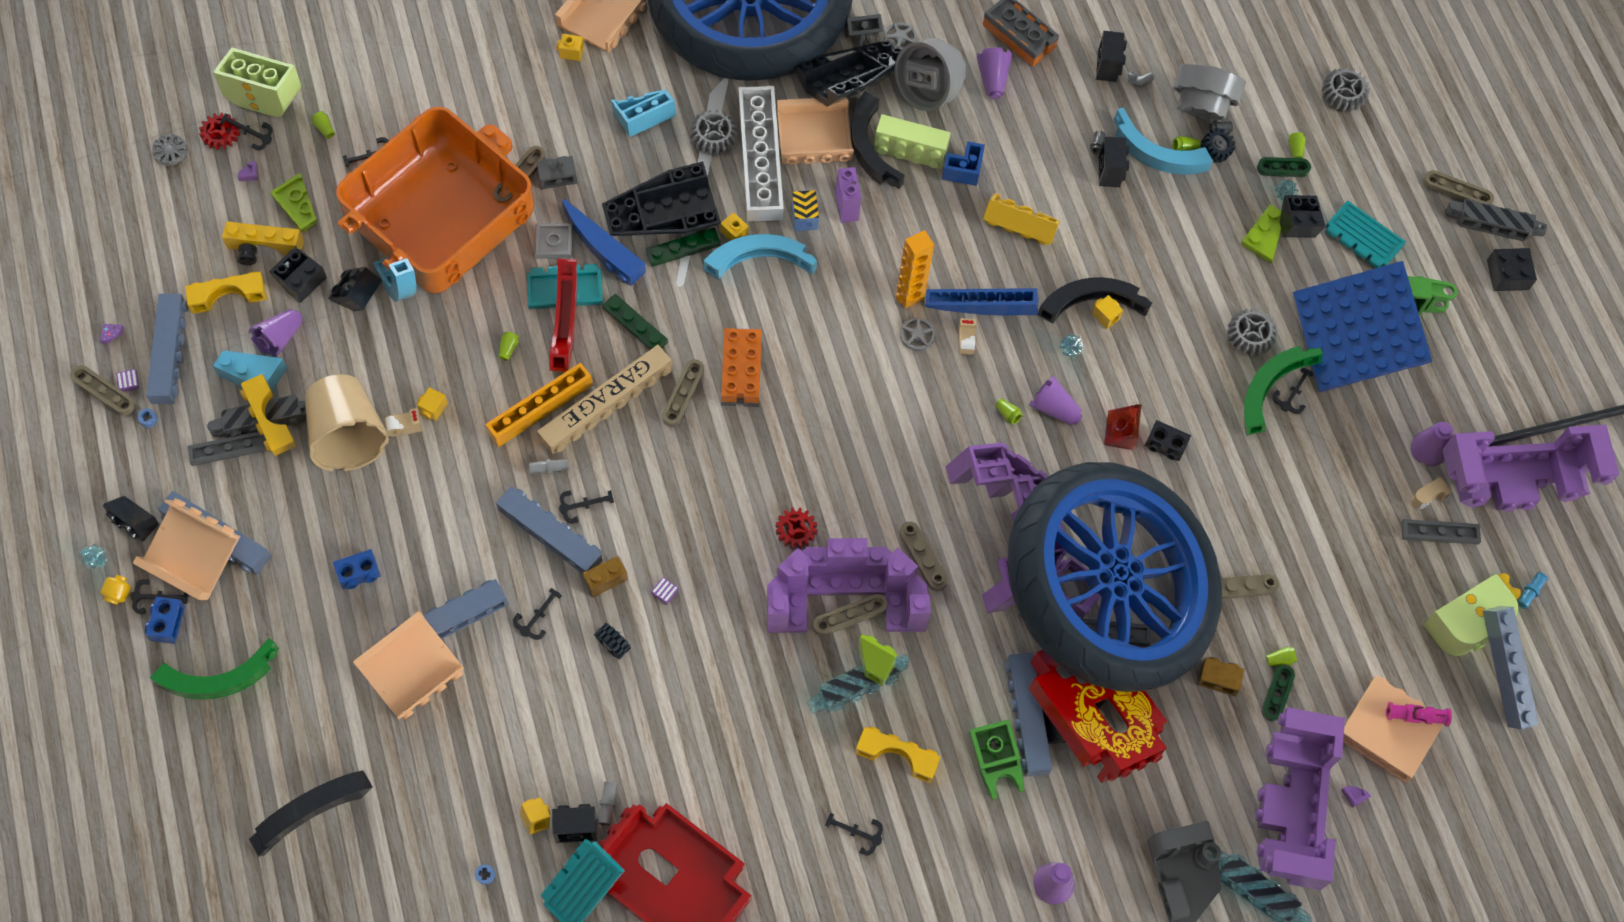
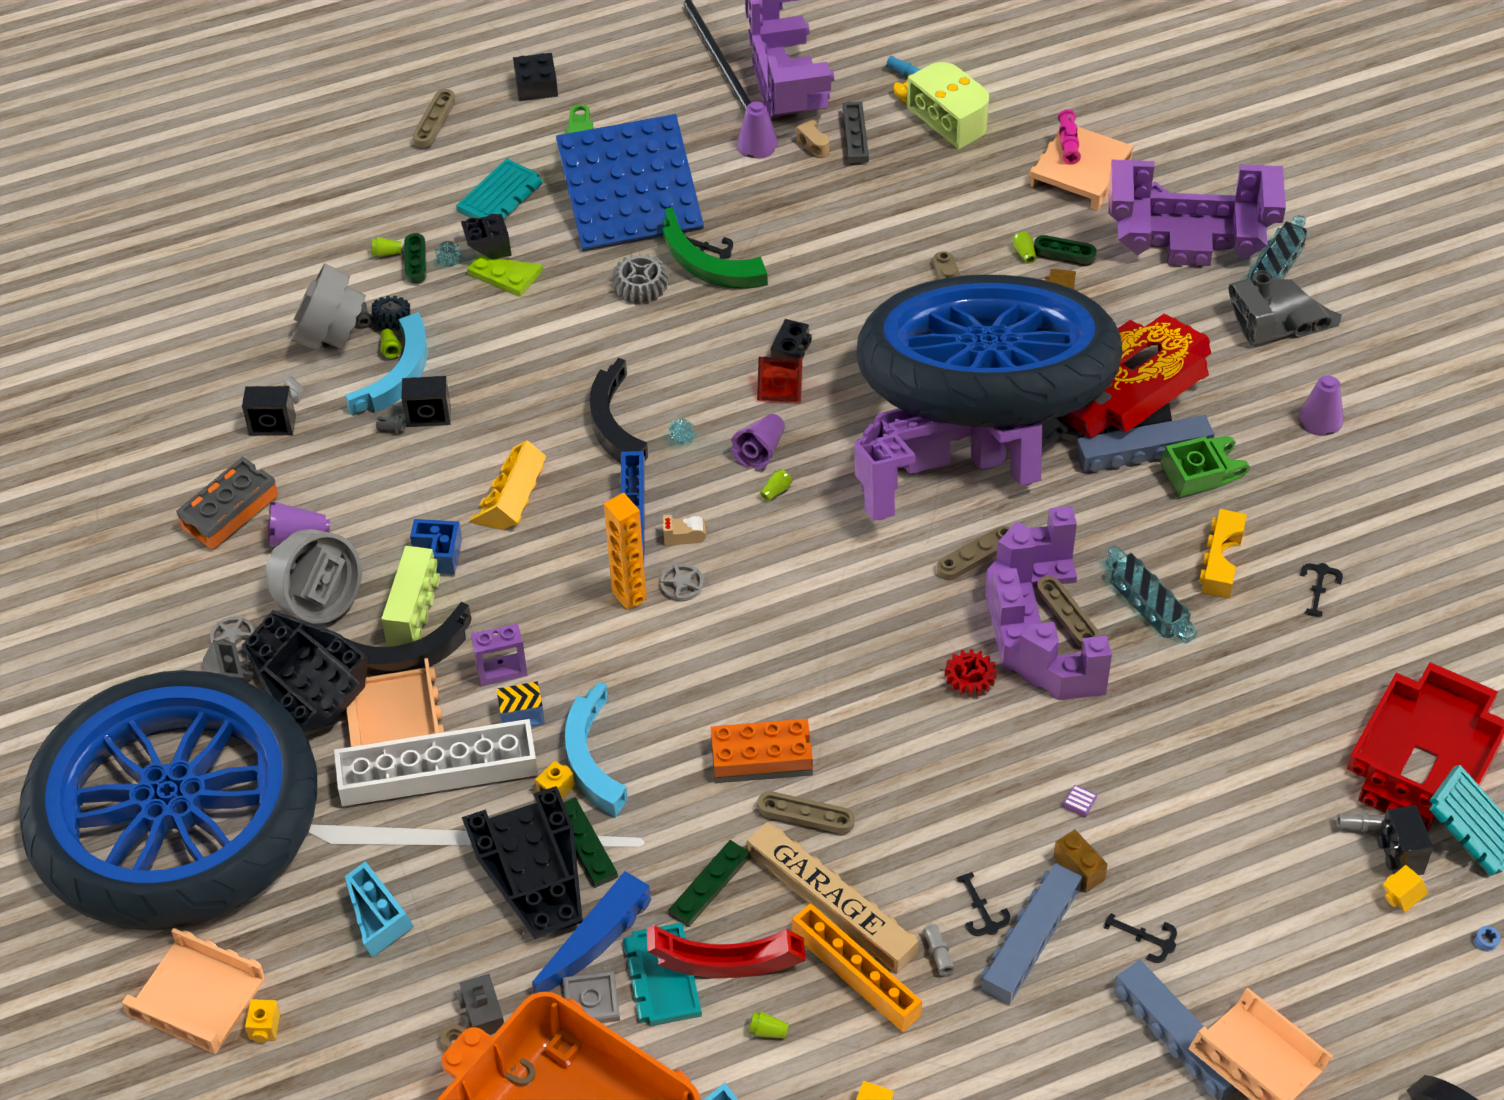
camera: 90 degrees left, 15 degrees down
(612, 641) = (1165, 837): black wheel -> none
(713, 125) = (402, 831): light grey gear -> none
(876, 659) = (1132, 563): lime slope -> none
(1107, 311) = (630, 402): yellow brick -> none
(1346, 84) = (304, 207): light grey gear -> none
(1495, 220) = (472, 89): dark grey hinge -> none
(1510, 667) = (1004, 69): sand blue brick -> none

